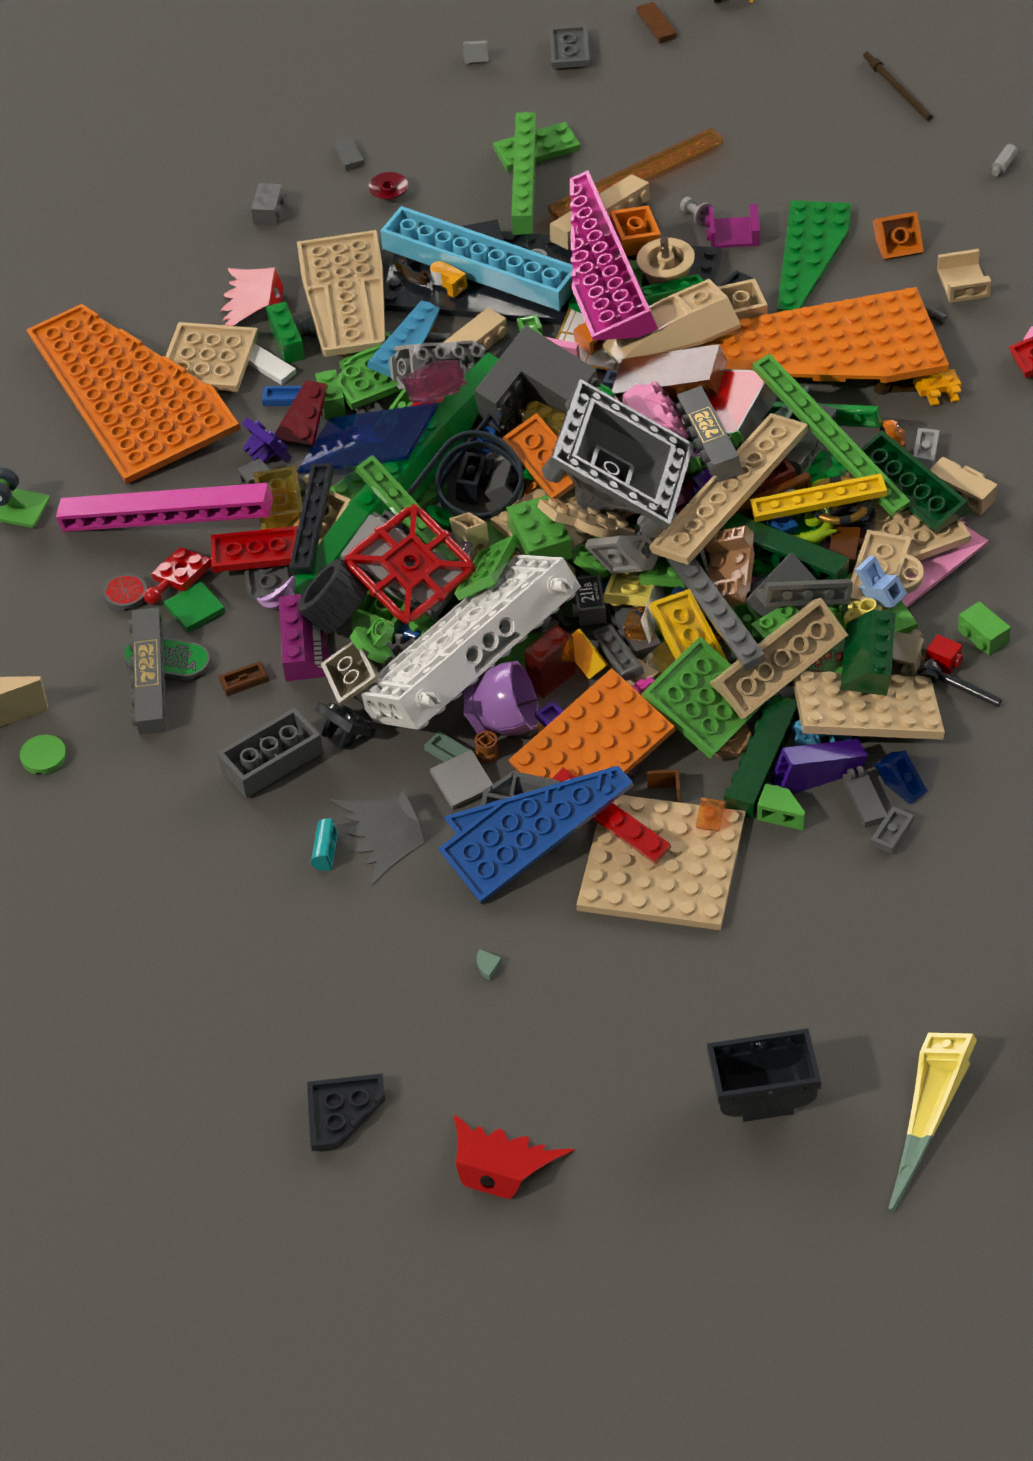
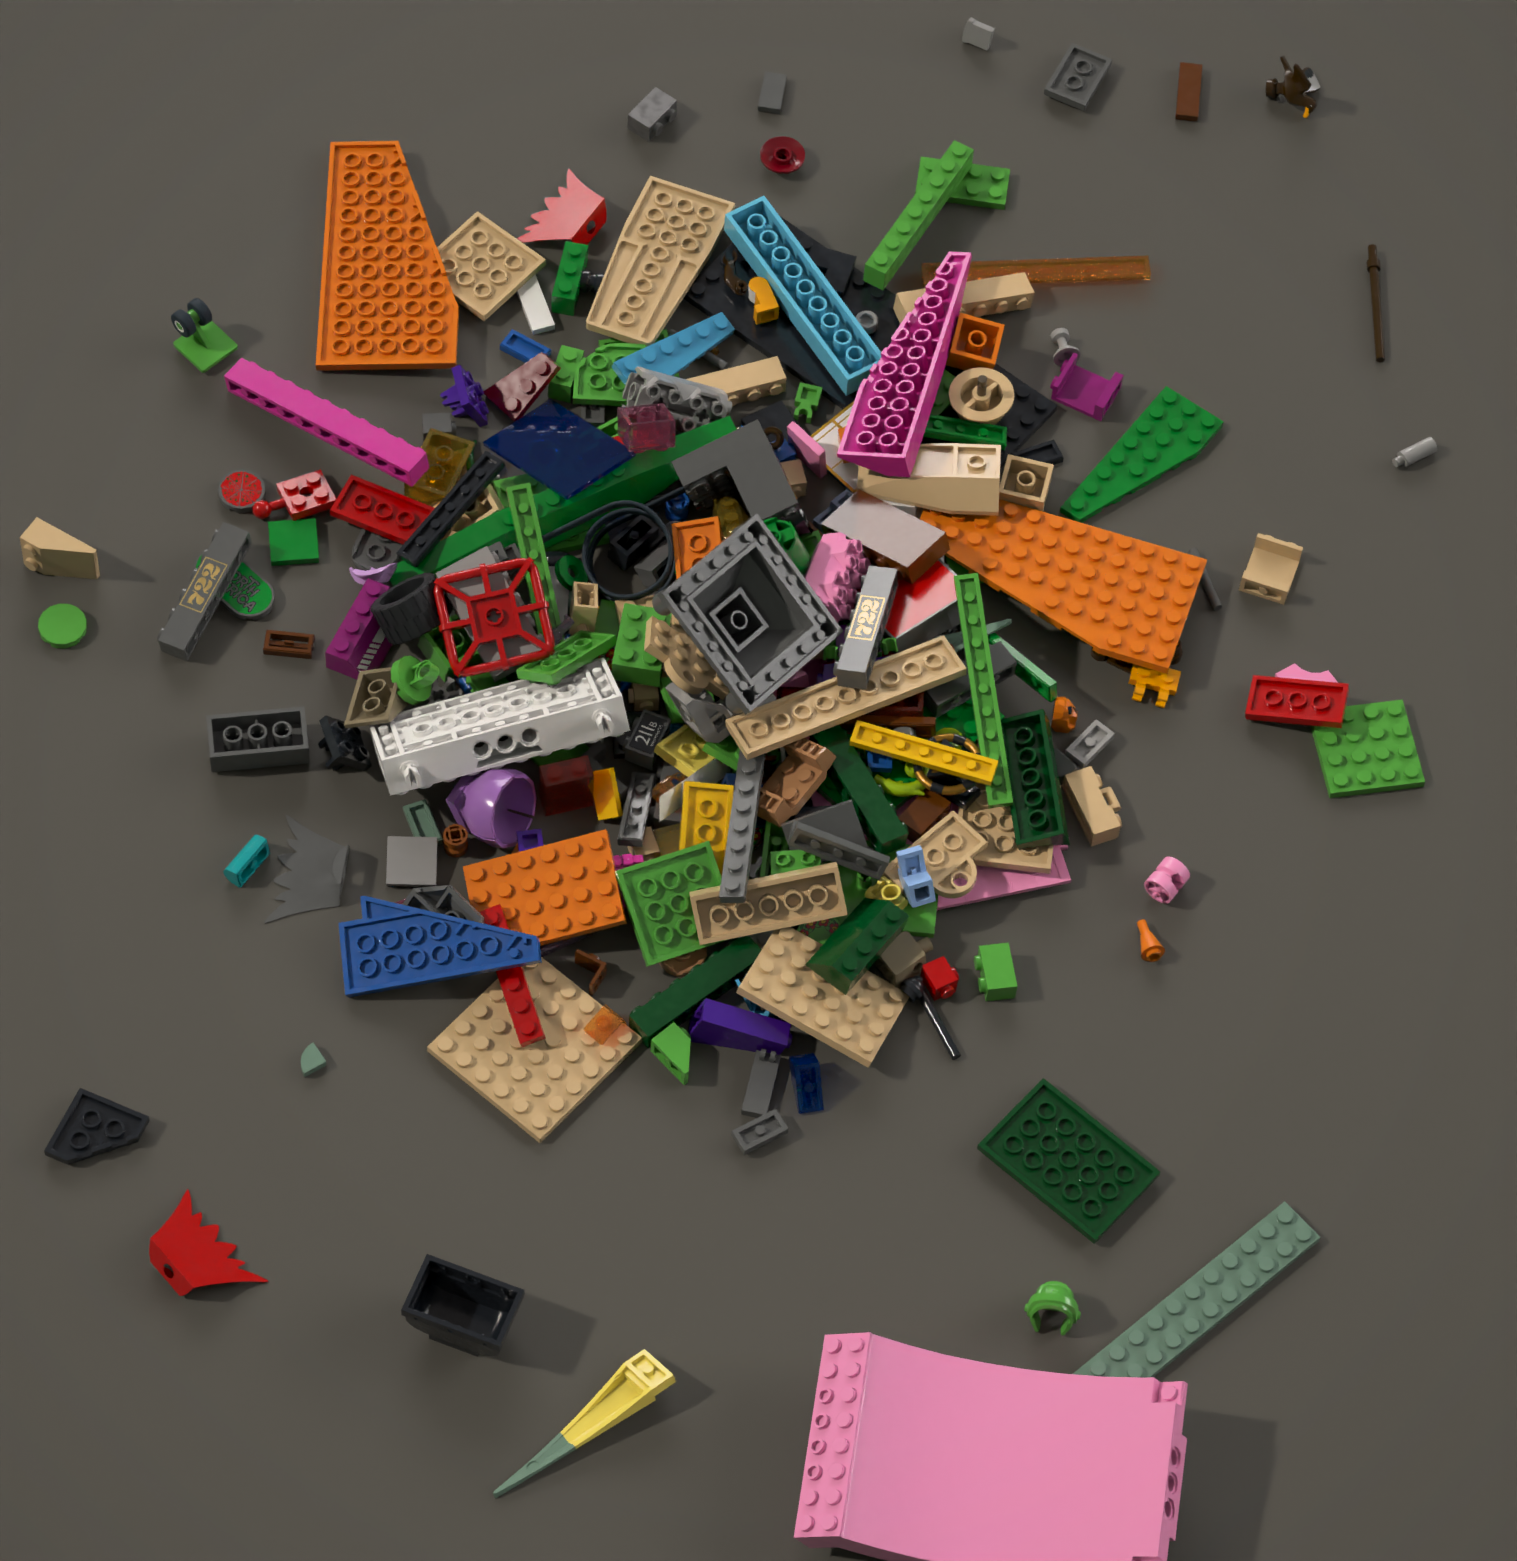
camera: 20 degrees right, 10 degrees up
(898, 235) = (1241, 486): orange slope -> none

